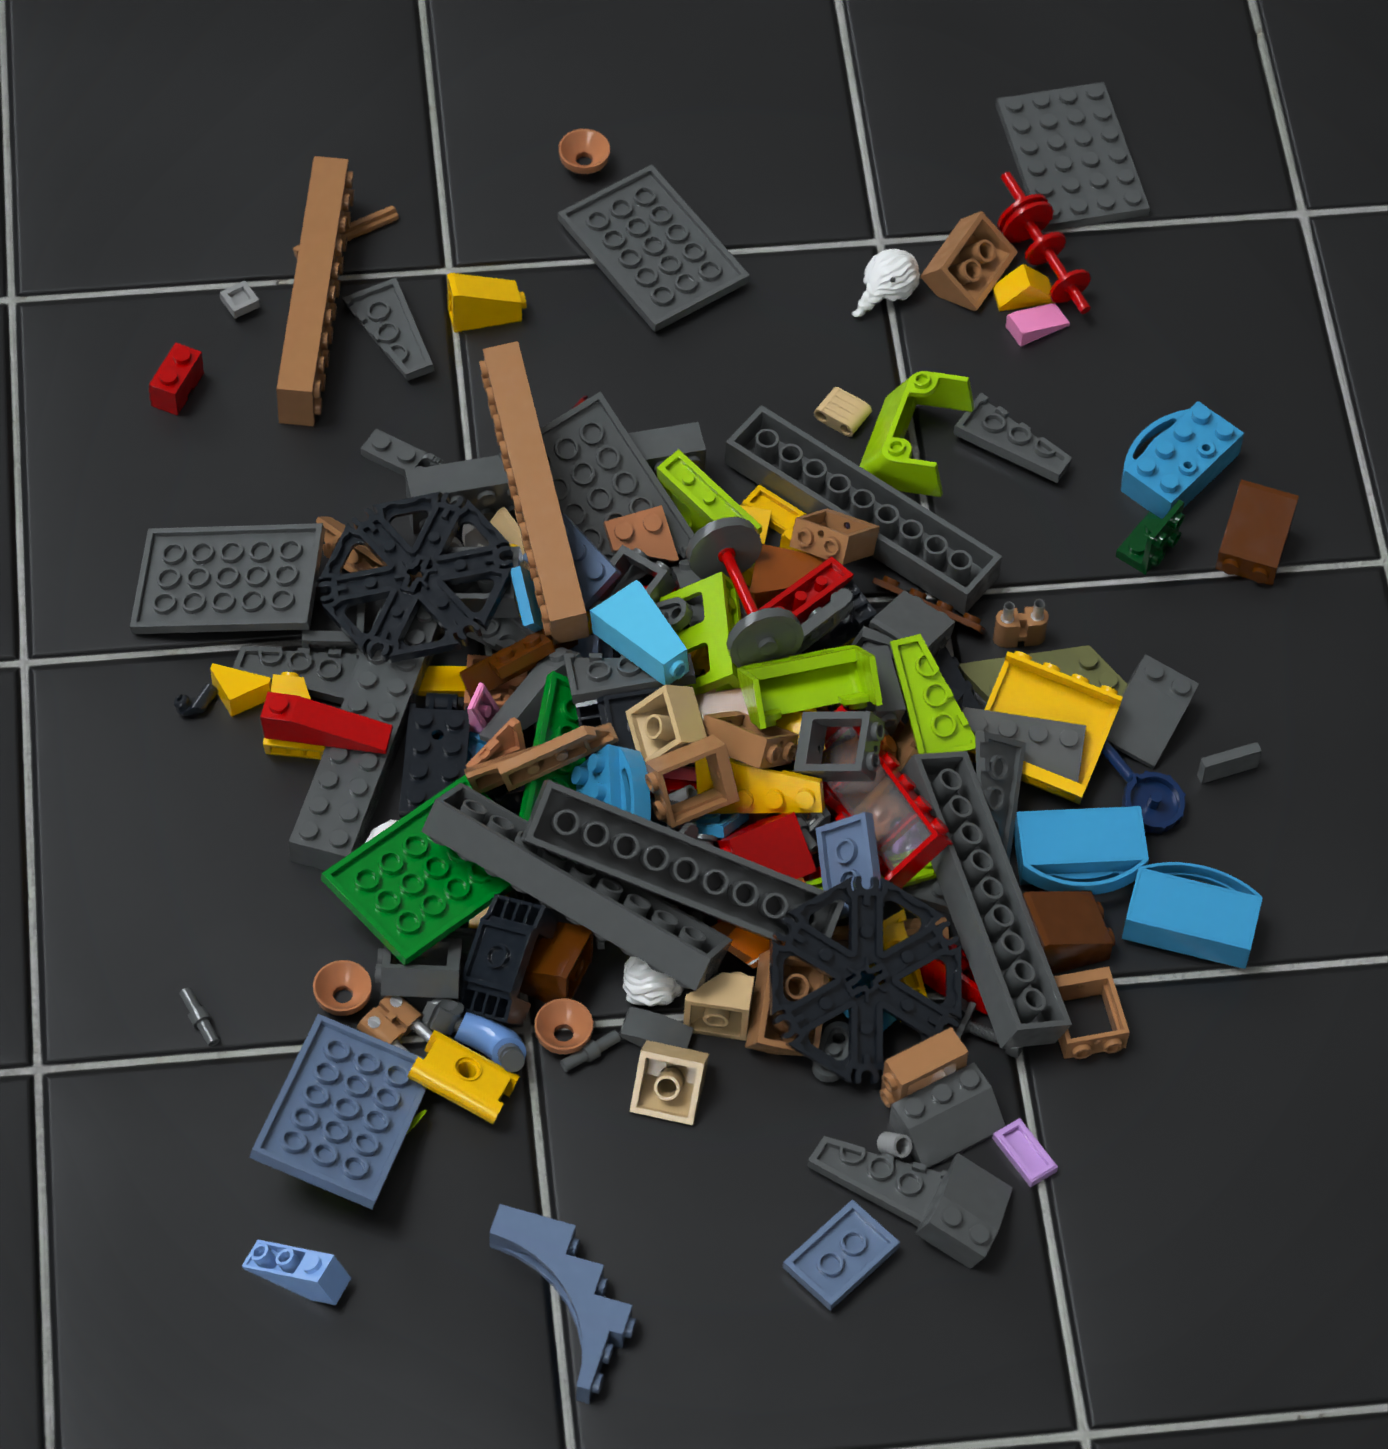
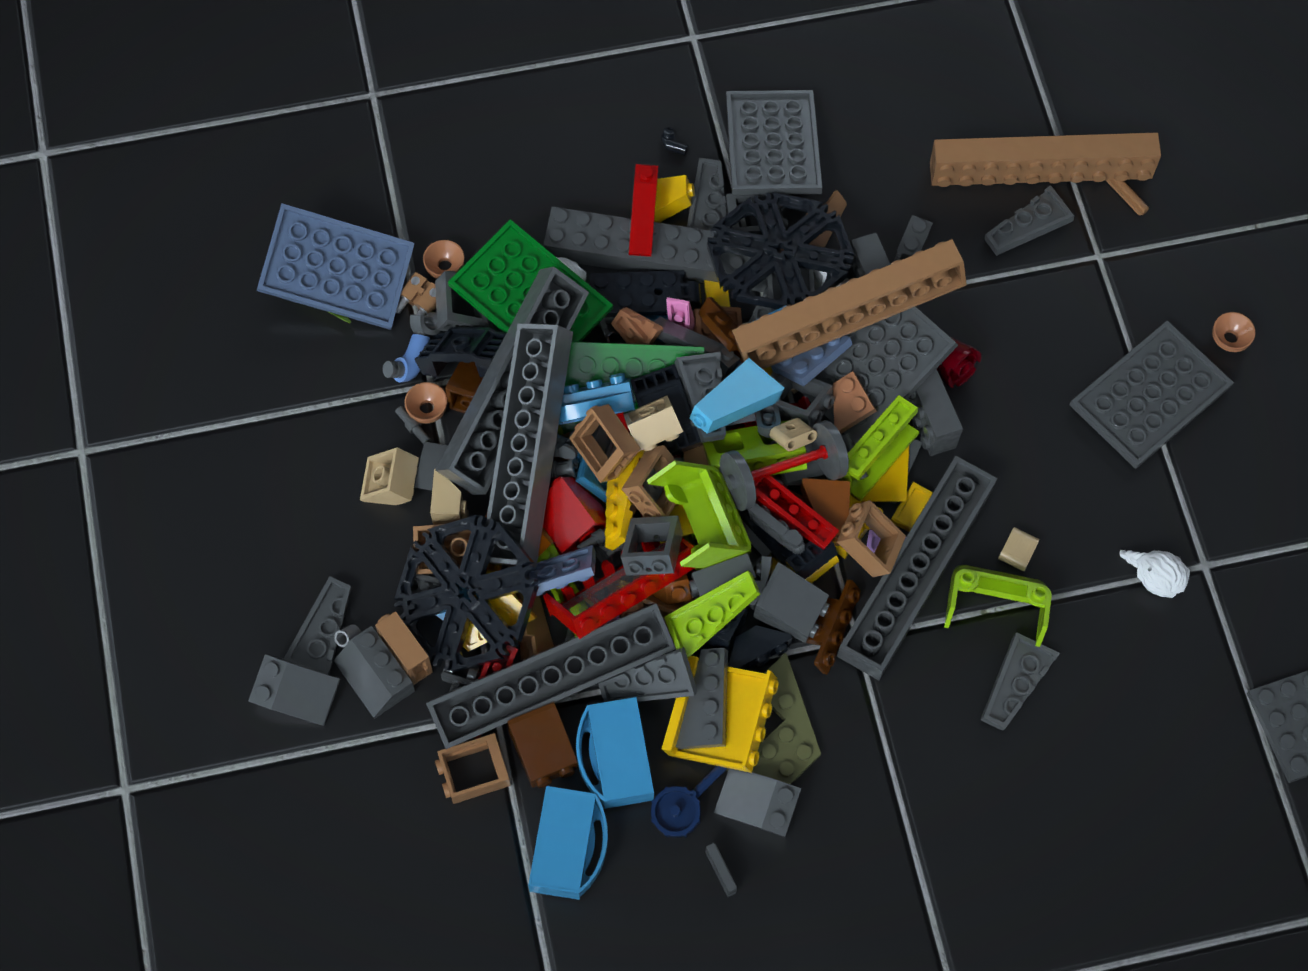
camera: 85 degrees right, 10 degrees up
(176, 378) = (948, 87): red brick -> none
(199, 1017) = (417, 180): dark grey bar -> none
(239, 299) = (1033, 119): light grey plate -> none
(239, 688) = (683, 161): yellow slope -> none
(300, 1270) = (224, 263): light blue slope -> none
(463, 1077) = (381, 325): yellow piece -> none
(482, 301) = (1063, 275): yellow slope -> none
(534, 762) = (619, 340): medium nougat wedge -> none
(552, 1250) = (222, 436): sand blue arch -> none
(697, 584) = (793, 434): none -> tan piece
(841, 1255) = (256, 607): sand blue plate -> none
(969, 262) = (1192, 634): medium nougat slope -> none
(1022, 289) = (1177, 682): yellow slope -> none
(1025, 626) = (826, 697): medium nougat piece -> none
(1025, 1152) = (353, 732): lavender tile -> none
(1026, 220) = (1242, 671): red piece -> none
(1035, 323) = (1145, 694): bright pink slope -> none
(1151, 538) = (934, 797): dark green bracket -> none
(1180, 459) = (1020, 815): dark azure piece -> none
(1257, 532) = (949, 881): reddish brown slope -> none

